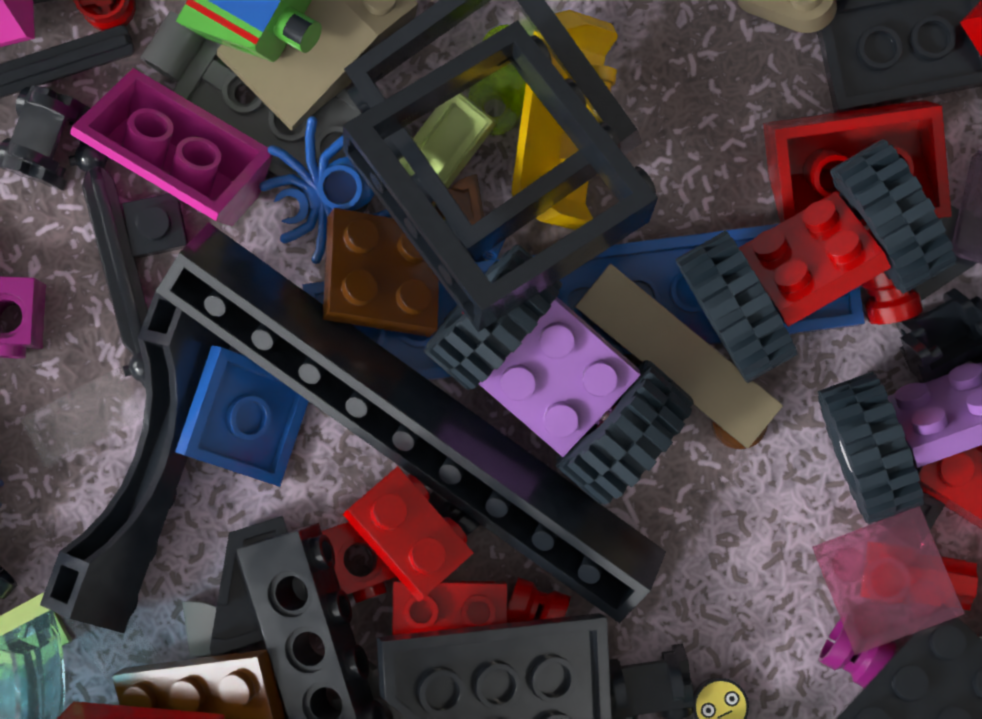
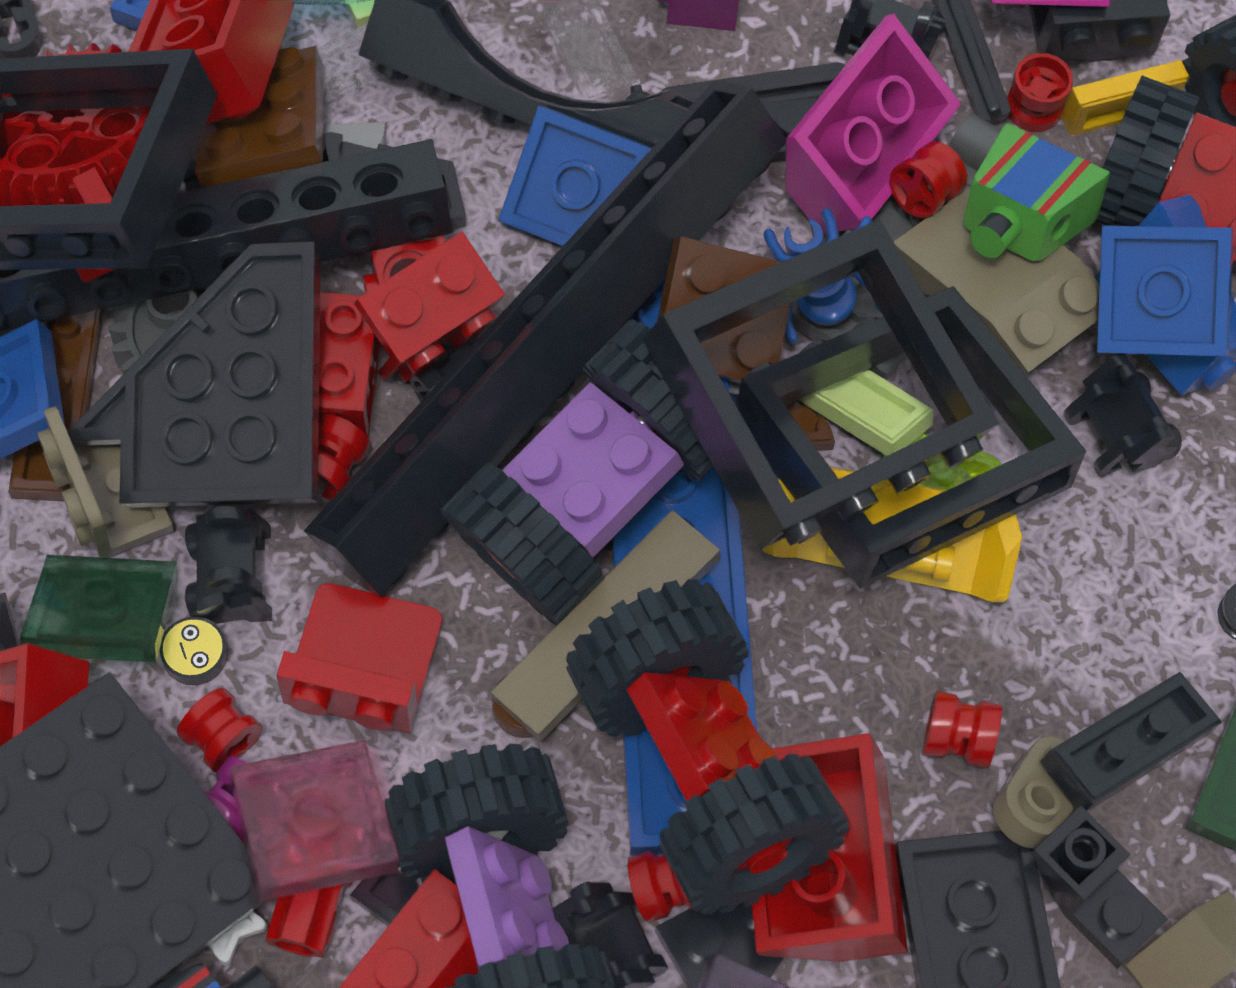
camera: 90 degrees right, 20 degrees down
(226, 94) = (928, 179): none -> red wheel
(721, 561) = (361, 658): none -> red bracket
(734, 61) = (962, 729): none -> red wheel
(795, 672) = (218, 728): none -> red wheel

